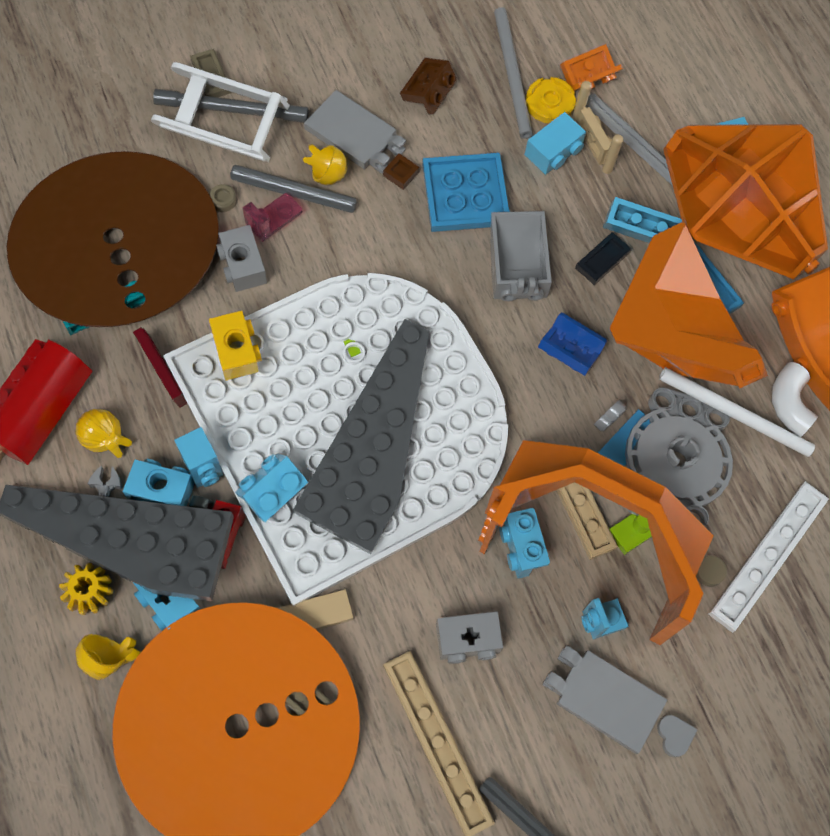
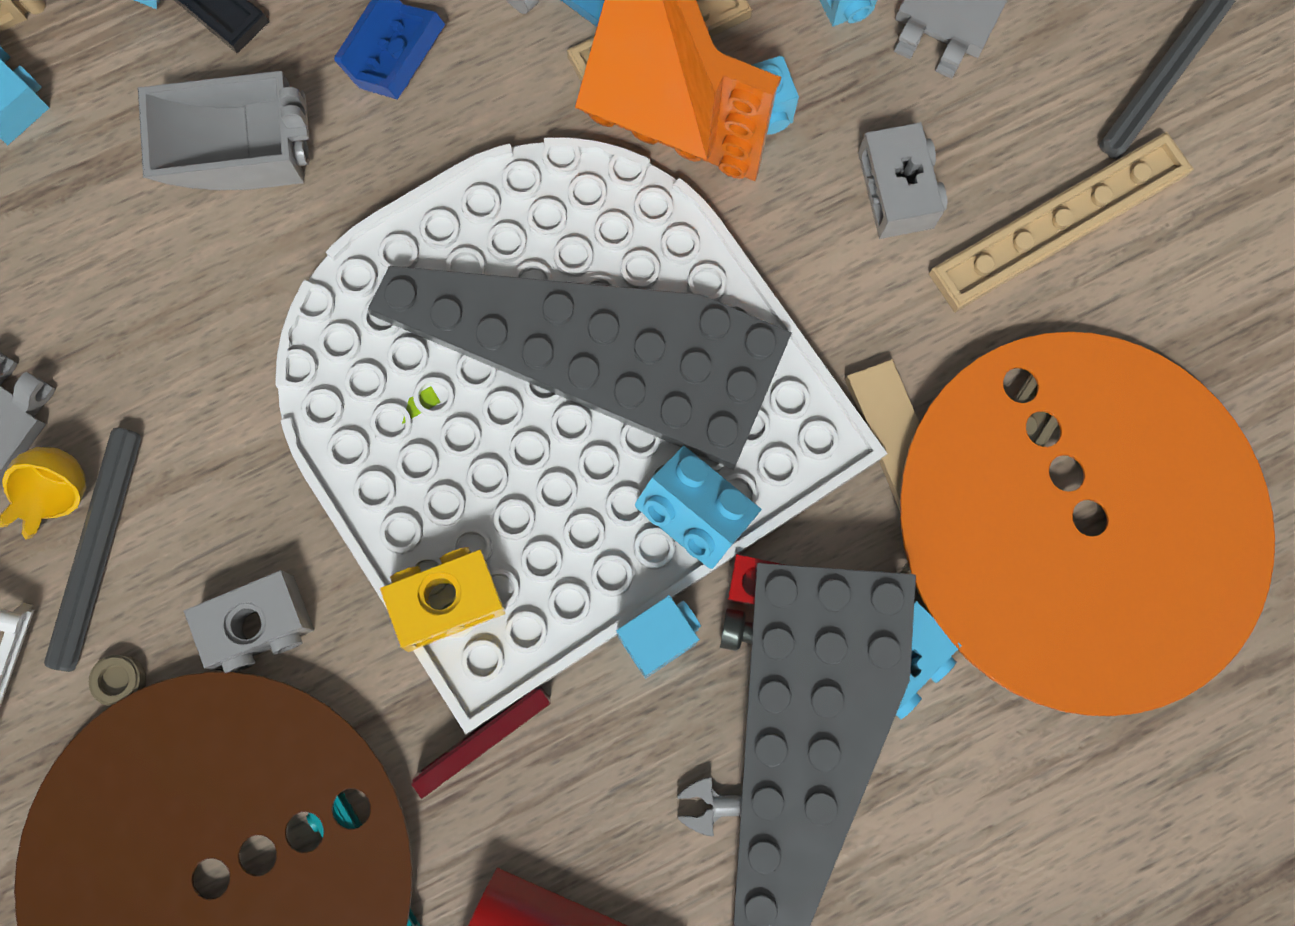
camera: 90 degrees left, 10 degrees up
(75, 587) = (921, 803): yellow gear -> none
(100, 431) = (615, 829): yellow piece -> none
(102, 656) = (1011, 750): yellow piece -> none
(145, 475) = (723, 678): medium azure brick -> none
(271, 218) = (155, 578): clear pink bracket -> none
(401, 171) = (50, 355): reddish brown tile -> none
(464, 190) = (91, 237): dark azure plate -> none

